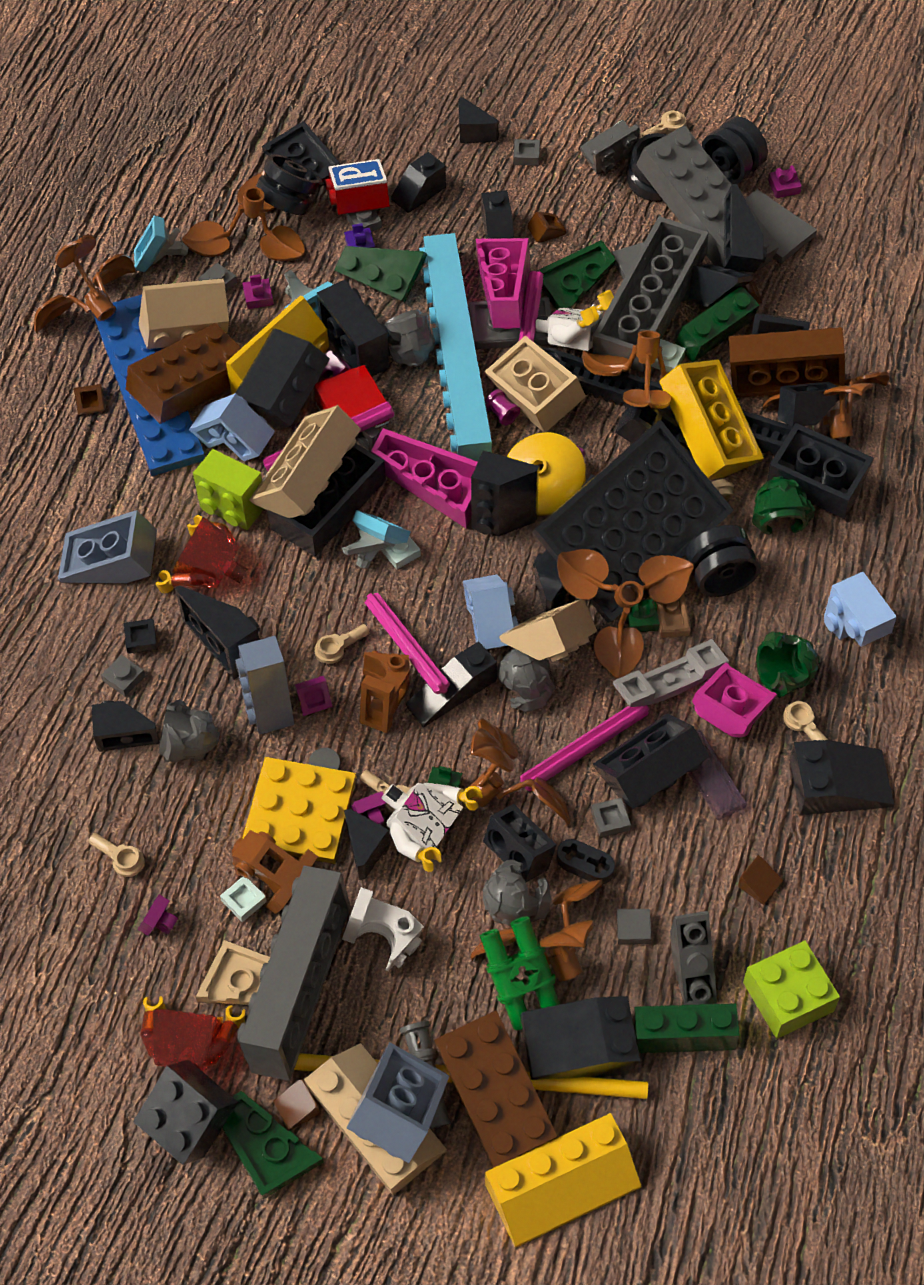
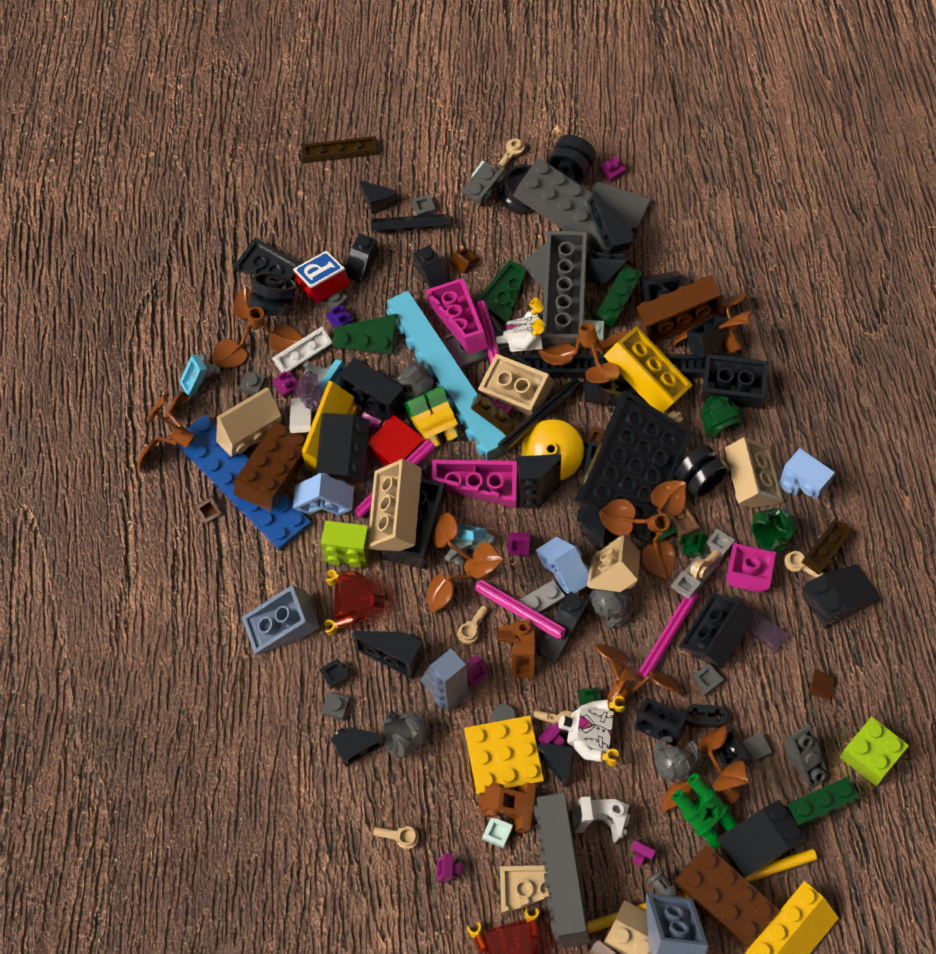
camera: 20 degrees left, 5 degrees up
(248, 327) = (299, 417): none -> white tile
(274, 297) = (309, 390): none -> clear purple rock
(300, 260) = (302, 350): none -> white tile
(375, 570) = (483, 562): none -> dark orange plant
(414, 391) = (432, 415): none -> yellow hips
(416, 995) = (643, 850): none -> magenta tile
(444, 643) = (544, 597): none -> light grey plate
(445, 567) = (518, 543): none -> magenta tile
(457, 60) = (339, 149): none -> dark brown tile
(488, 161) = (419, 222): none -> black plate
(491, 411) = (495, 416): none -> dark brown plate
(546, 424) = (541, 413): none -> black axle
(604, 917) = (733, 751): none -> black slope
(663, 675) = (701, 566): none -> tan plate
(670, 646) = (693, 544): none -> dark green tile
(793, 590) = (753, 473): none -> tan slope
(848, 711) = (826, 546): none -> dark brown plate

